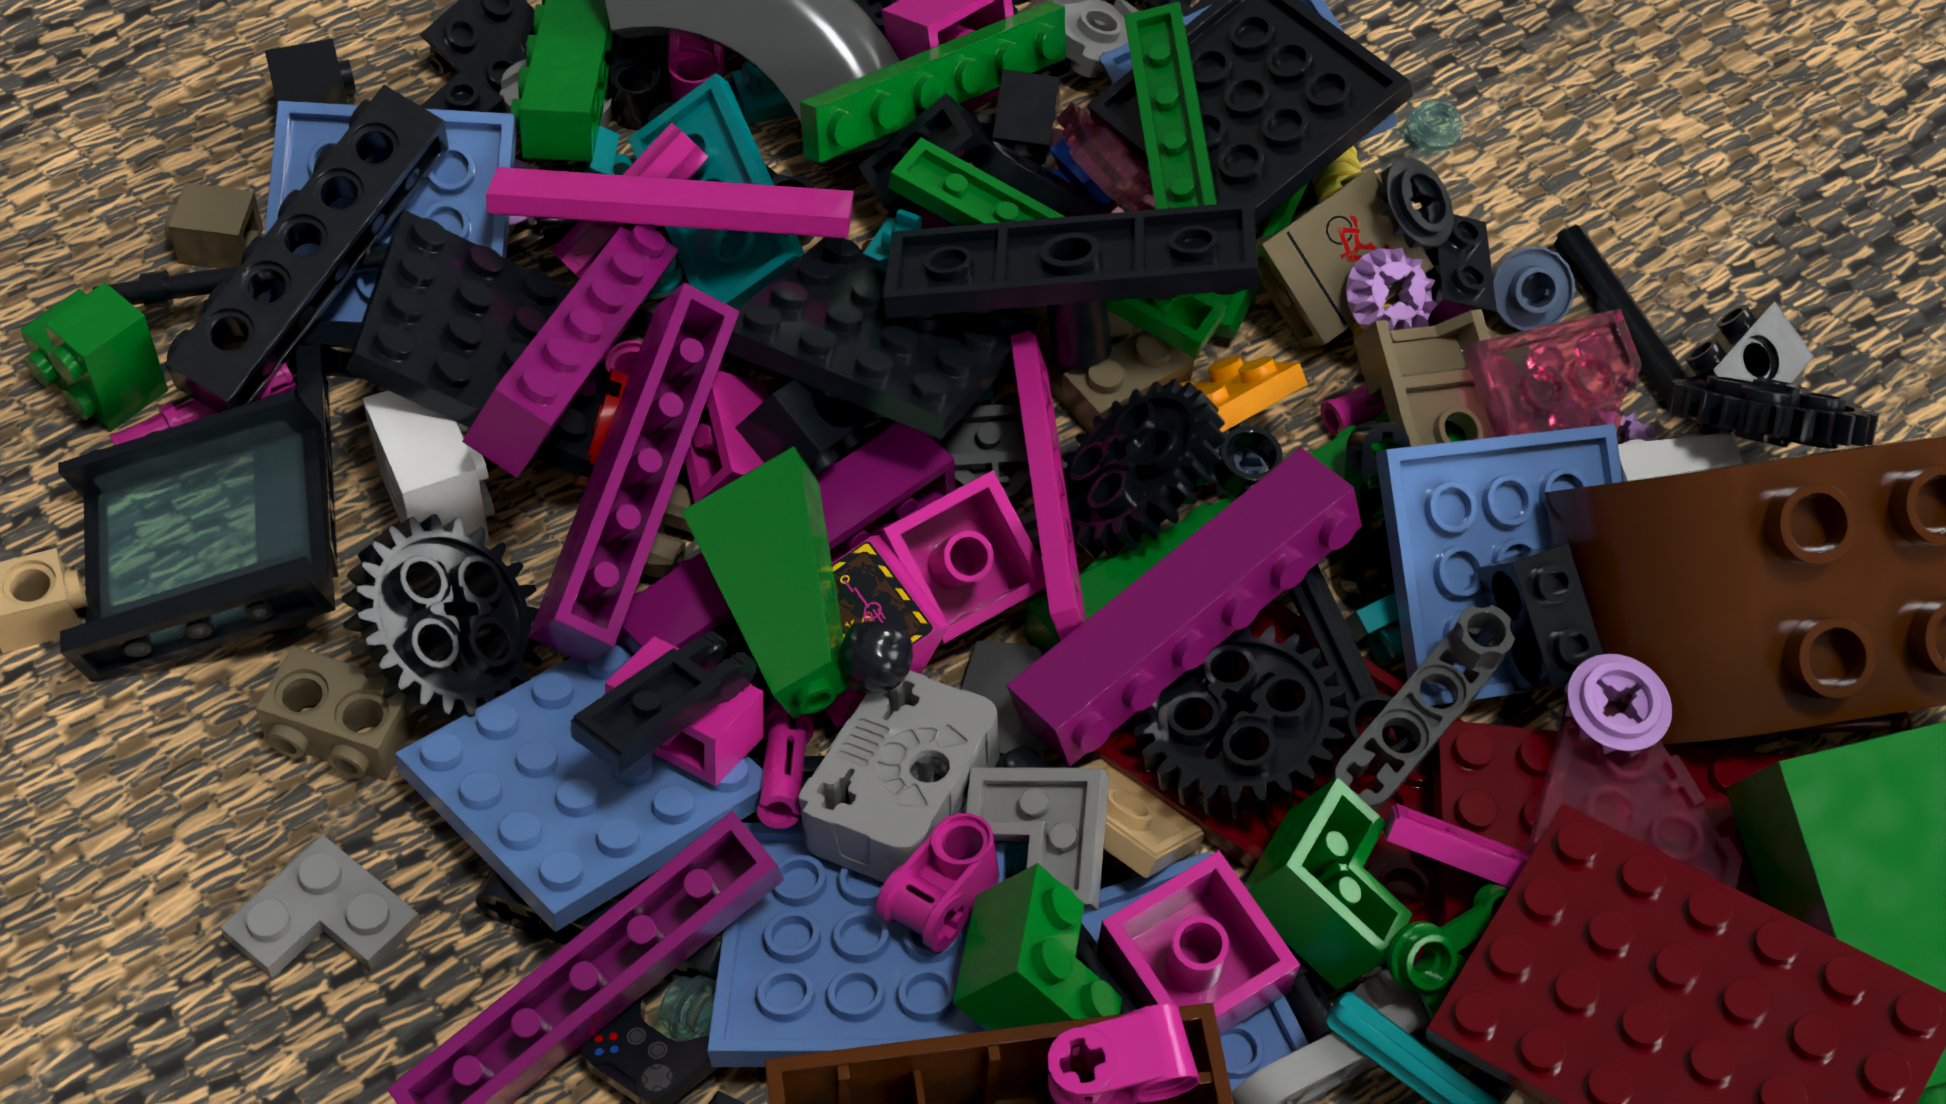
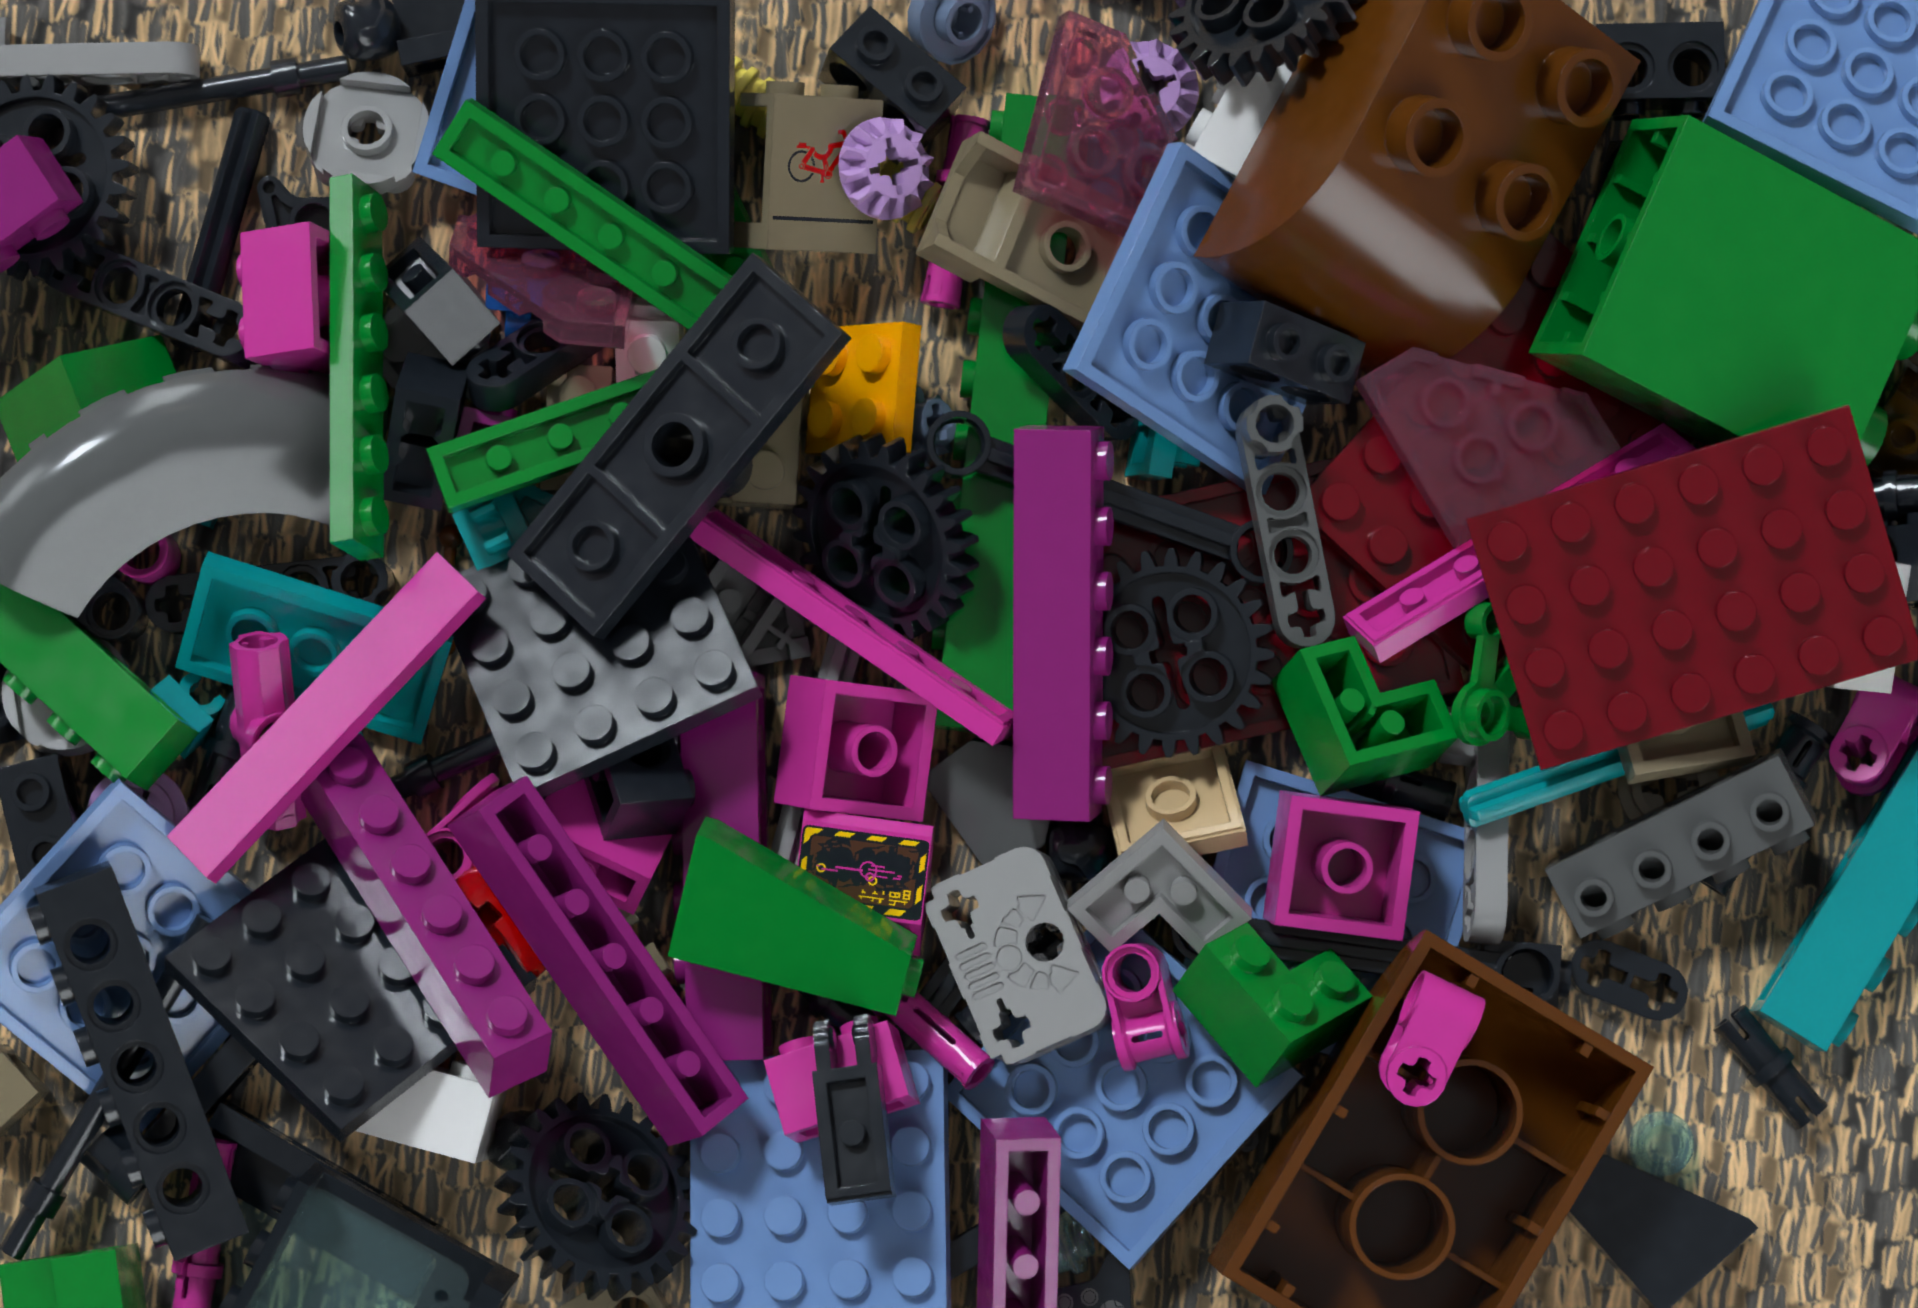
camera: 45 degrees left, 30 degrees up
(875, 657) = (924, 911): black piece -> none
(1416, 182) = (848, 70): black gear -> none
(1612, 677) = (1431, 359): lavender gear -> none

